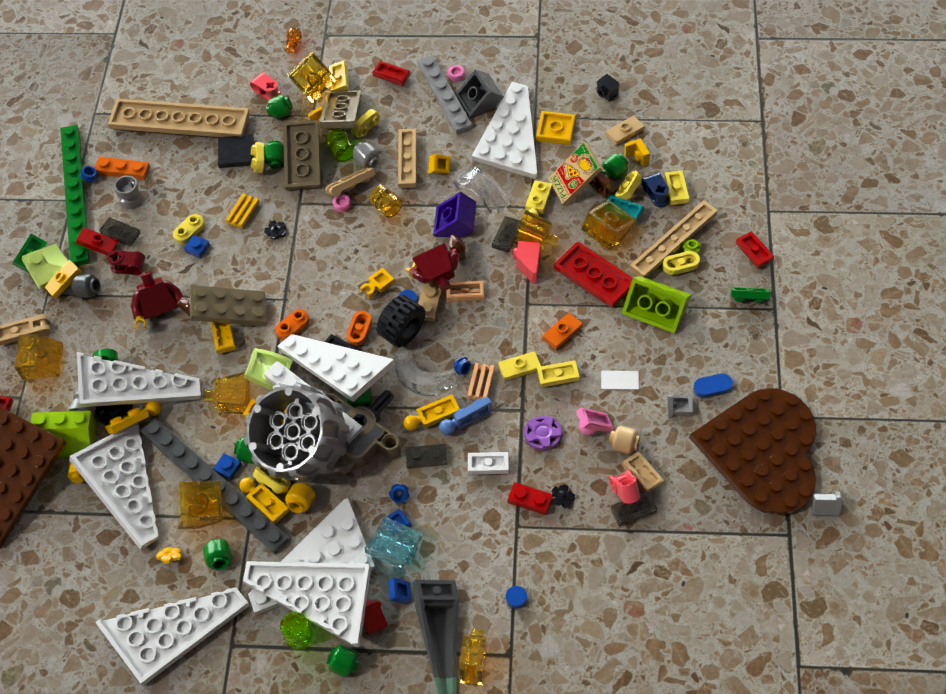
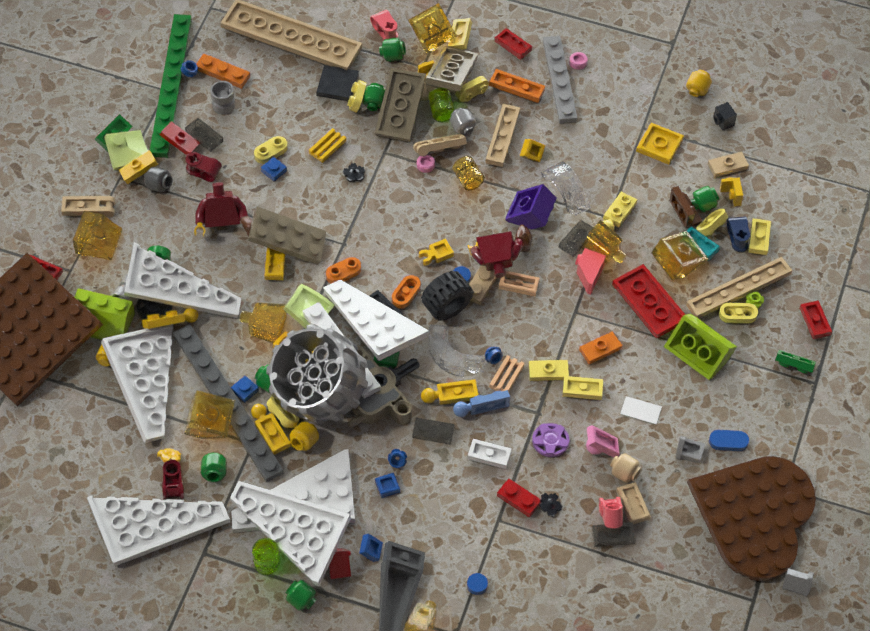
camera: 10 degrees right, 0 degrees up
(180, 583) = (172, 483): none -> dark red piece
(394, 543) = (378, 502): clear light blue plate -> none
(406, 110) = (517, 85): none -> orange plate
(479, 94) = (593, 88): dark grey slope -> none
(509, 136) = (611, 139): white wing -> none
(574, 64) = (699, 83): none -> yellow head
(575, 173) = (662, 196): tile -> none

